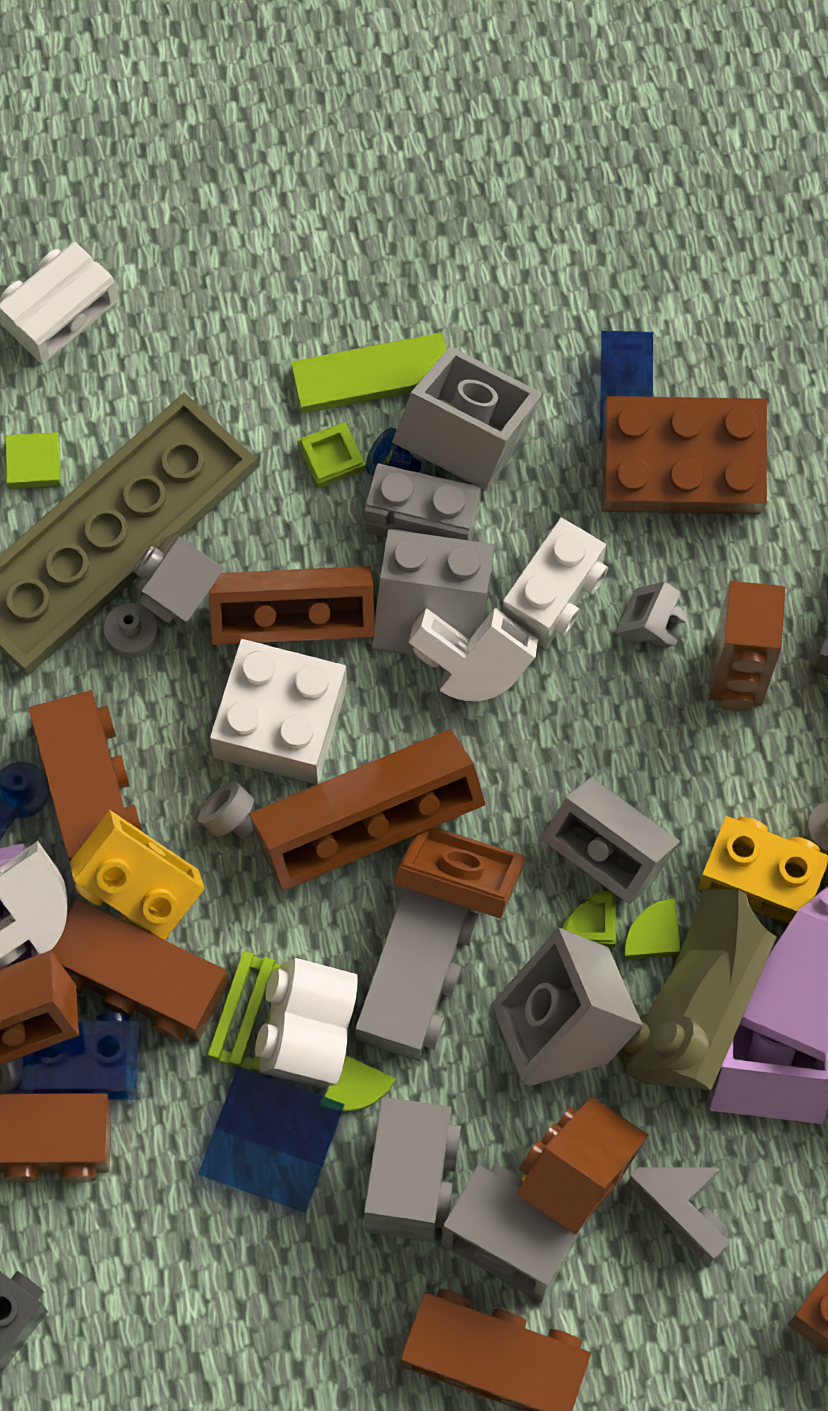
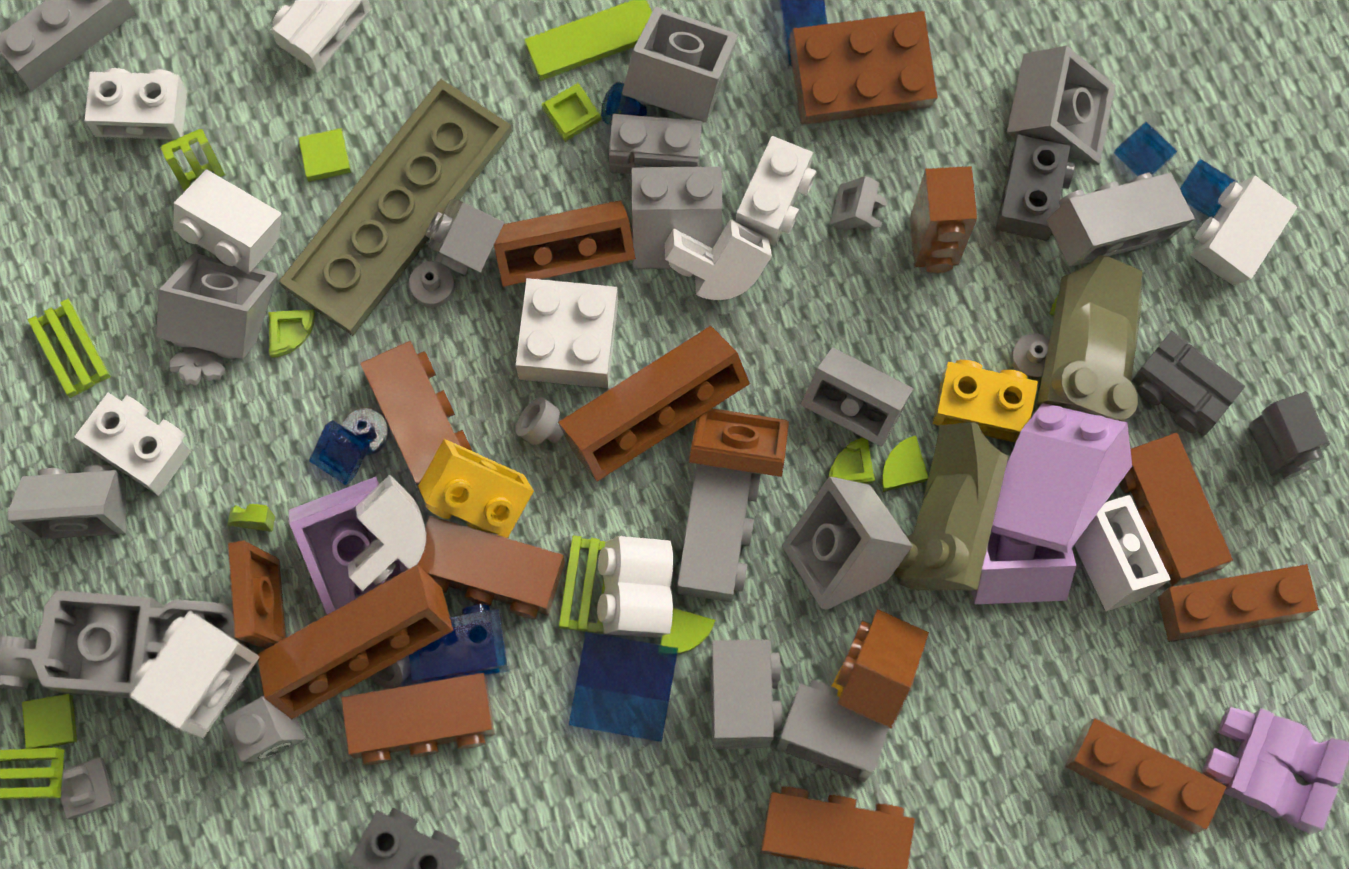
camera: 10 degrees left, 5 degrees up
(670, 1194) = (954, 680): light grey slope -> none

